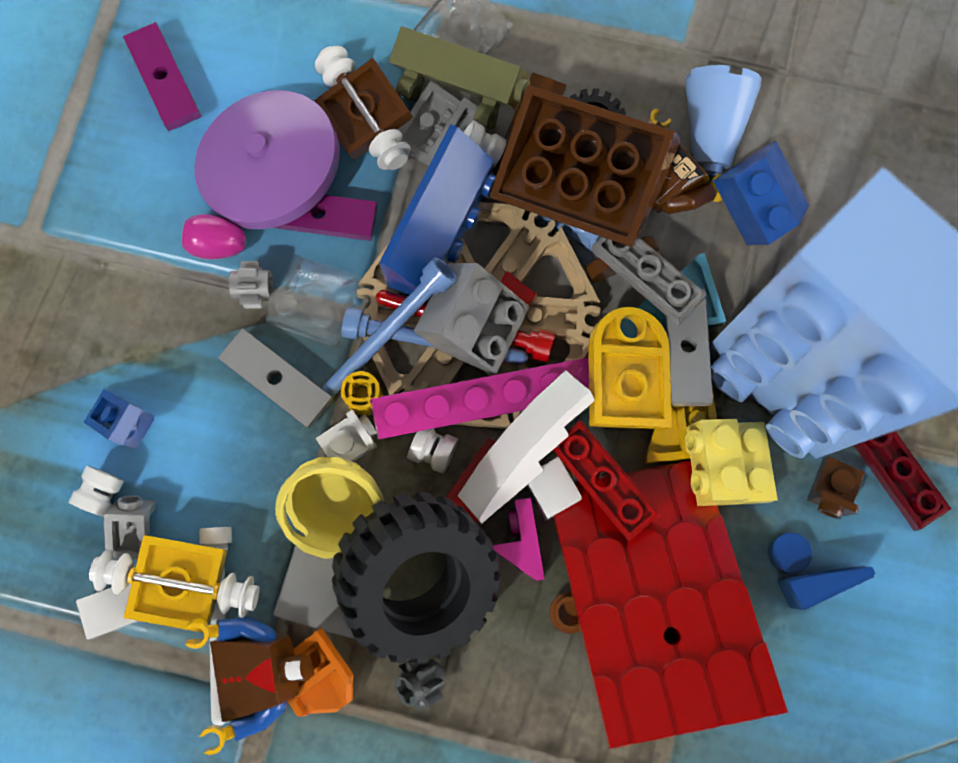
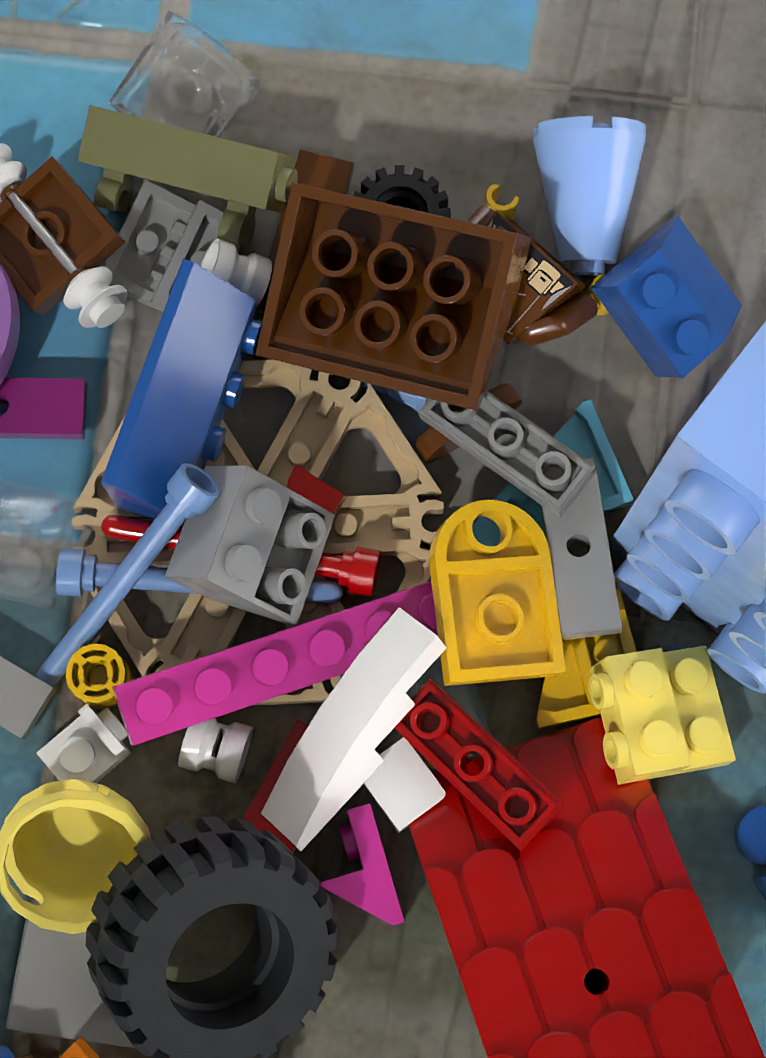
camera: 10 degrees left, 0 degrees up
(563, 614) = (439, 970): dark orange plate -> none

